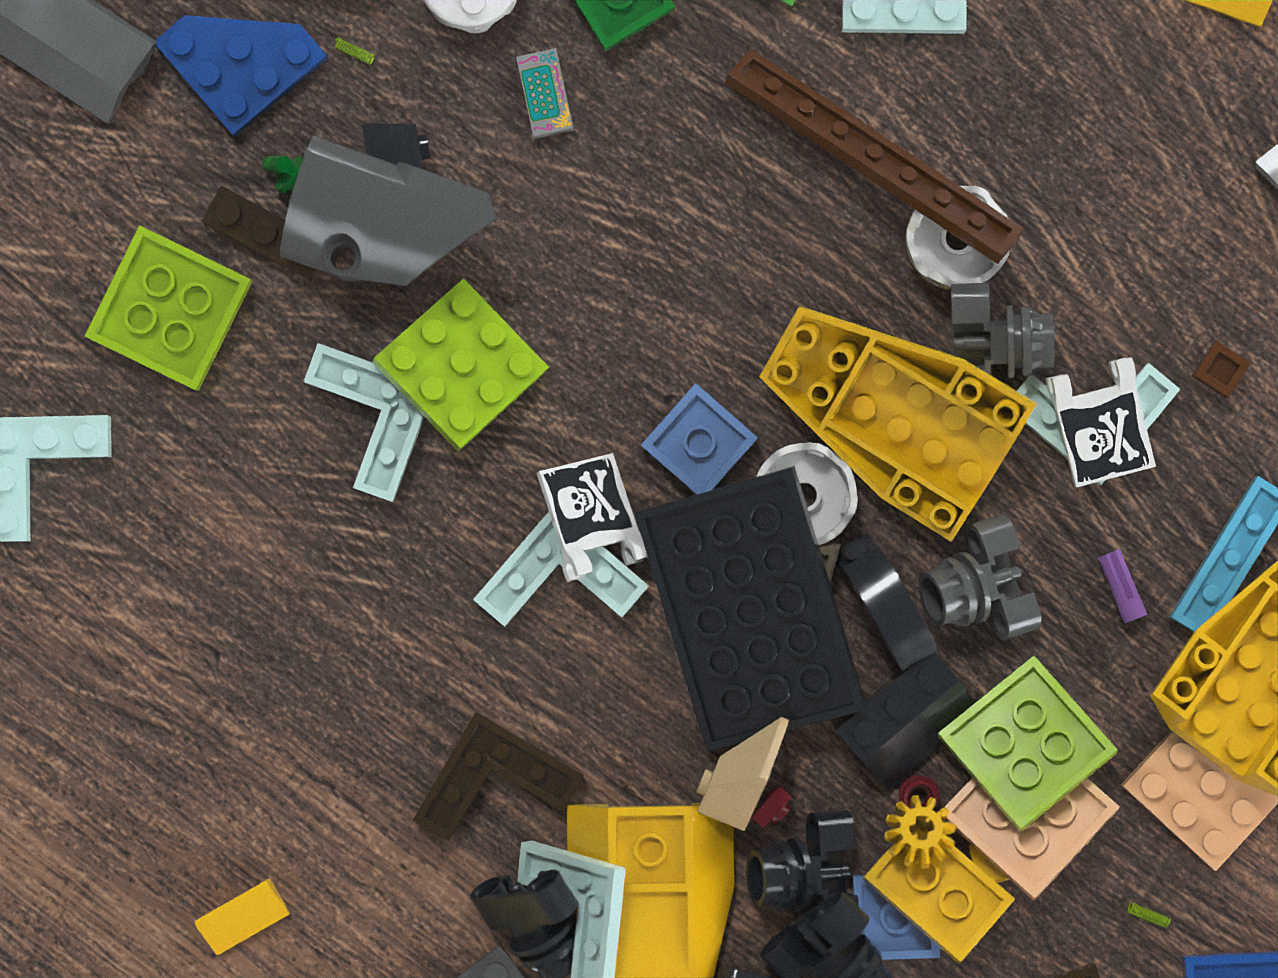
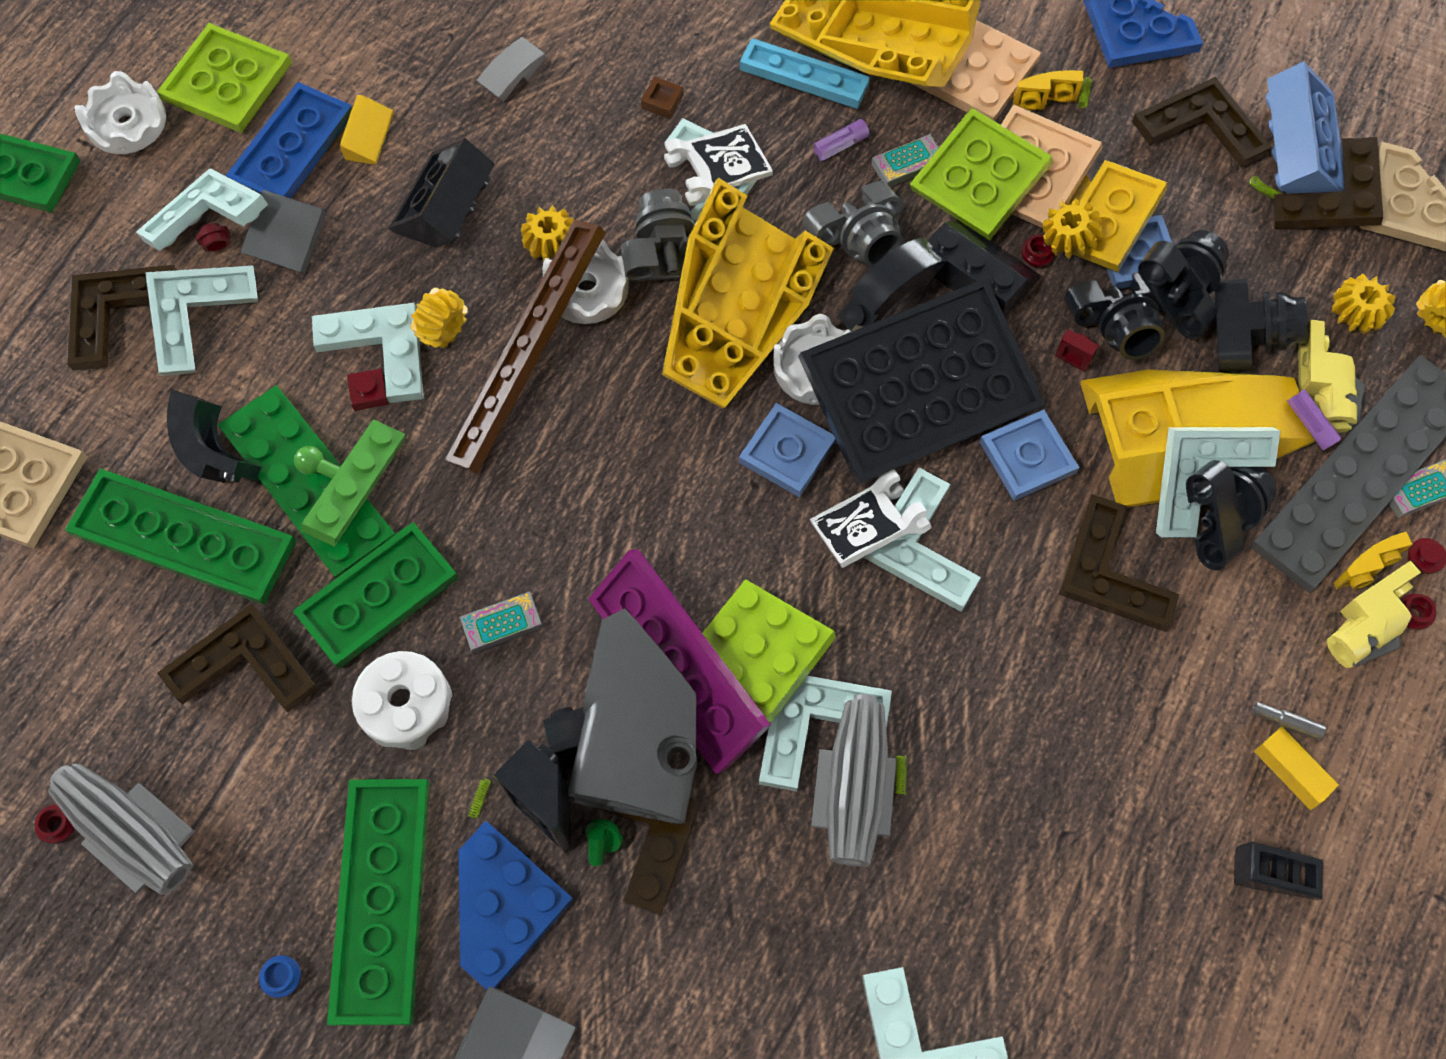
camera: 105 degrees left, 20 degrees down
(150, 832) = (1252, 871): none -> black slope
(168, 308) = (749, 932): lime plate -> none
(288, 440) = (855, 784): none -> light grey plate
(293, 925) = (1290, 721): none -> flat silver pin
(310, 494) = (899, 774): none -> lime leg
(324, 108) = (538, 789): none -> black slope
(470, 273) = (725, 712): none -> magenta plate
(647, 717) = (1029, 455): none -> medium blue plate
(741, 776) = (1064, 355): tan slope -> none
(931, 56) = (438, 317): none -> yellow gear
(1046, 190) = (545, 232): none -> yellow gear
(1078, 663) = (904, 161): none -> tile
(1114, 76) = (443, 194): none -> black slope
(1151, 849) = (1057, 86): none -> yellow slope

